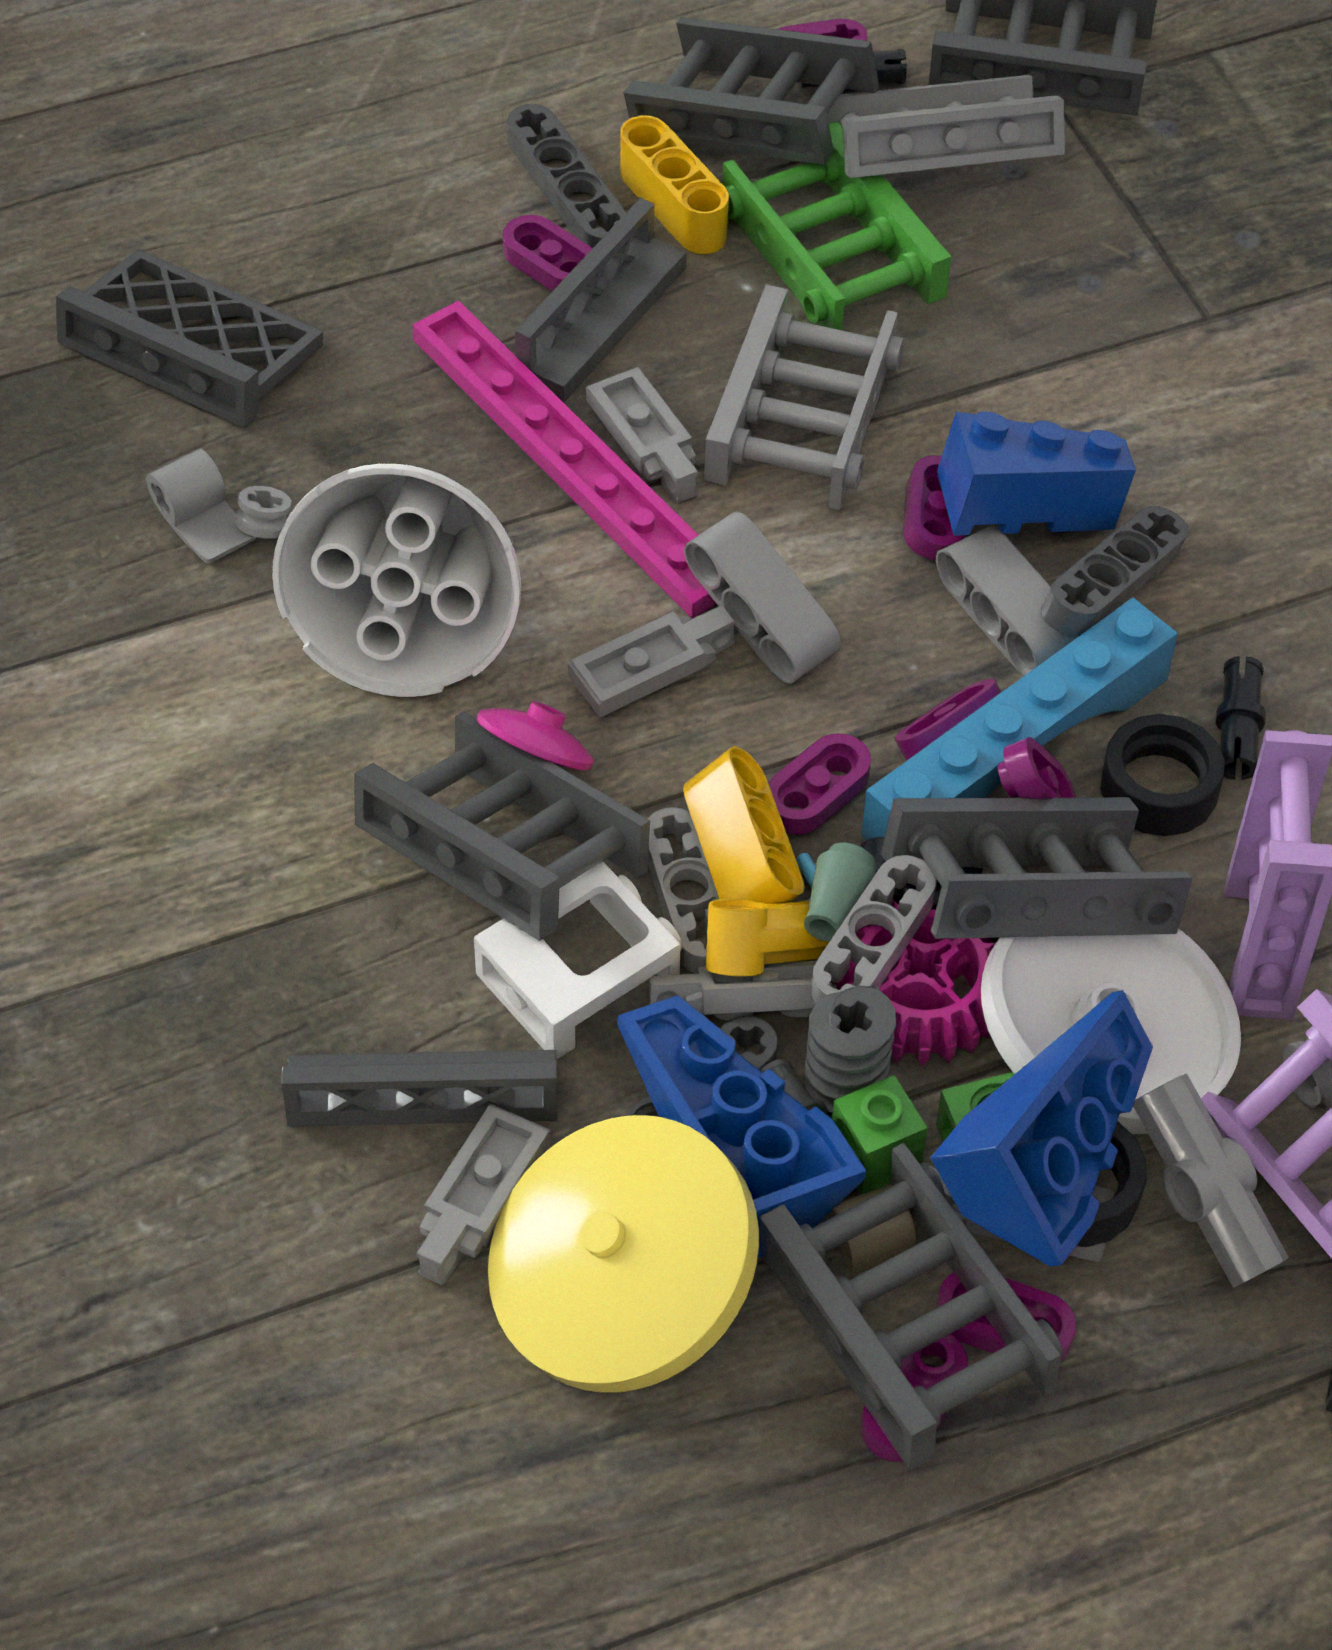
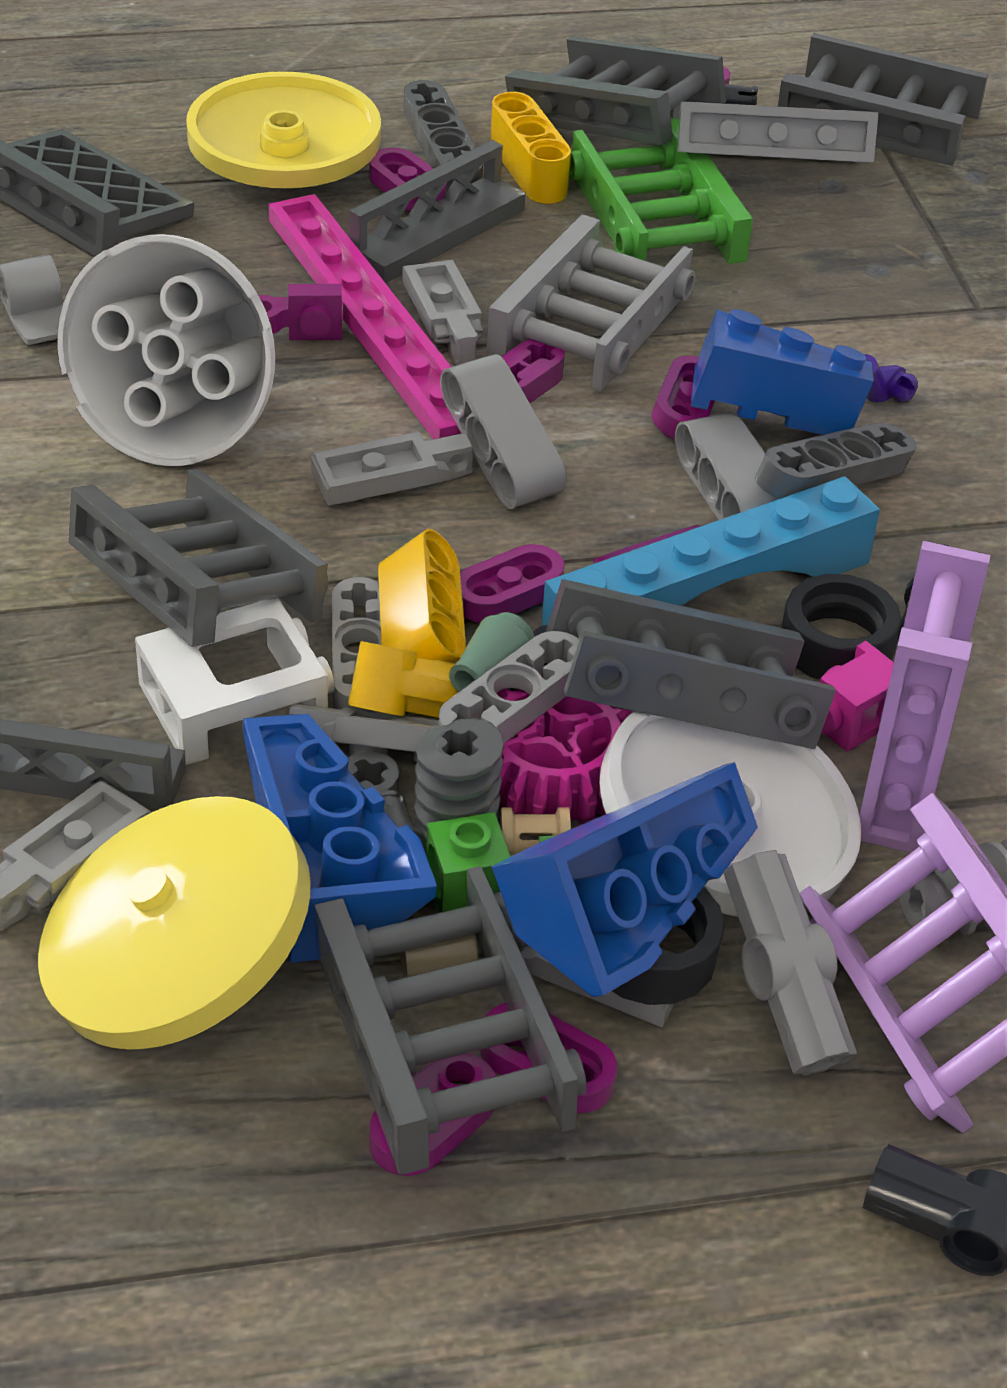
camera: 10 degrees right, 10 degrees down
(397, 215) = (283, 129): none -> light yellow dish
(501, 469) = (308, 311): none -> magenta plate
(538, 733) = (261, 493): dark pink dish -> none
(765, 509) = (535, 367): none -> magenta beam
(927, 1077) = (518, 825): none -> tan bush
(1033, 772) = (708, 589): magenta plate -> none
(1144, 442) = (891, 382): none -> dark purple arm
(1202, 851) = (858, 697): none -> dark pink brick

